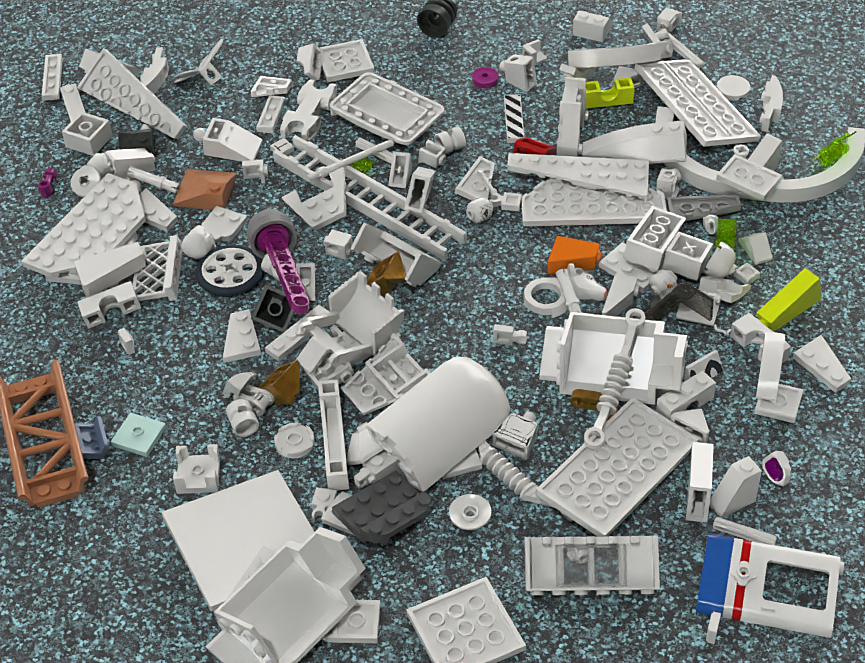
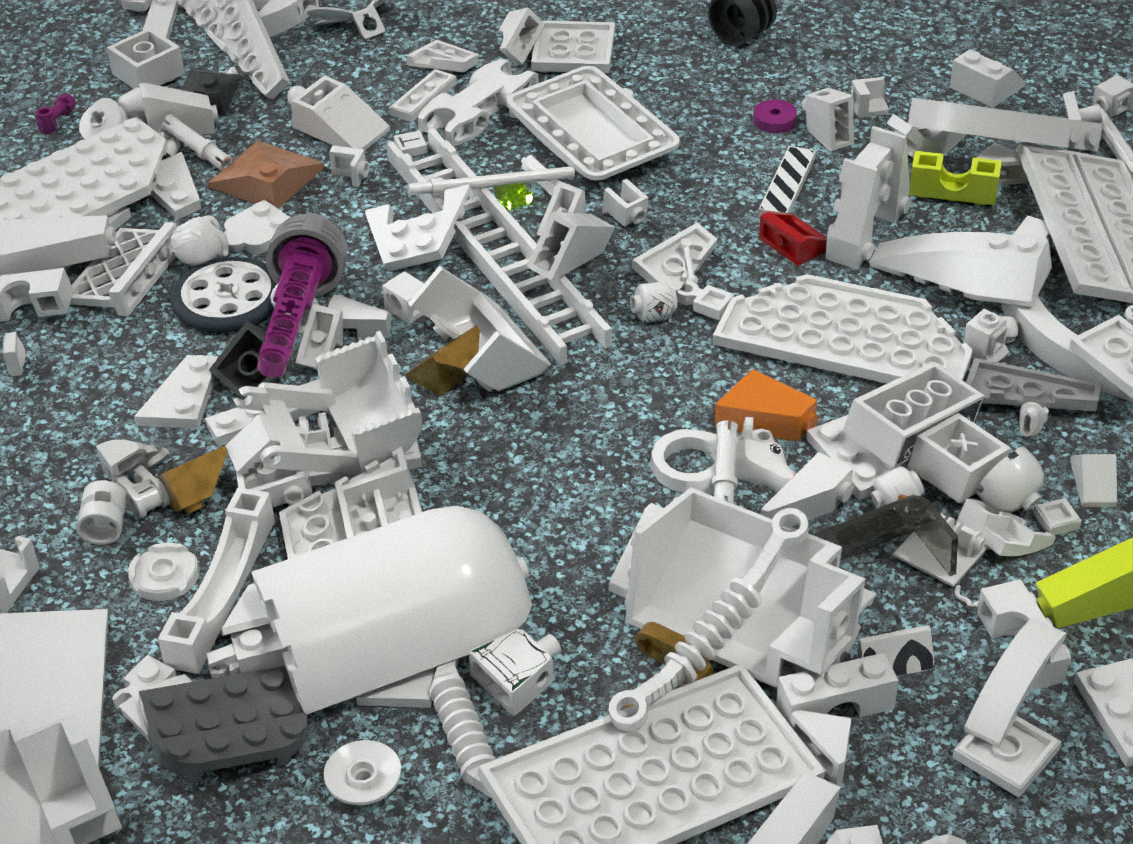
camera: 20 degrees right, 5 degrees down
(323, 263) = (362, 316): none -> white slope
(452, 139) = (665, 189): white wheel -> none
(506, 335) = (587, 503): white plate -> none
(612, 174) = (894, 299): white wing -> none
(726, 232) = (1049, 439): clear neon green brick -> none

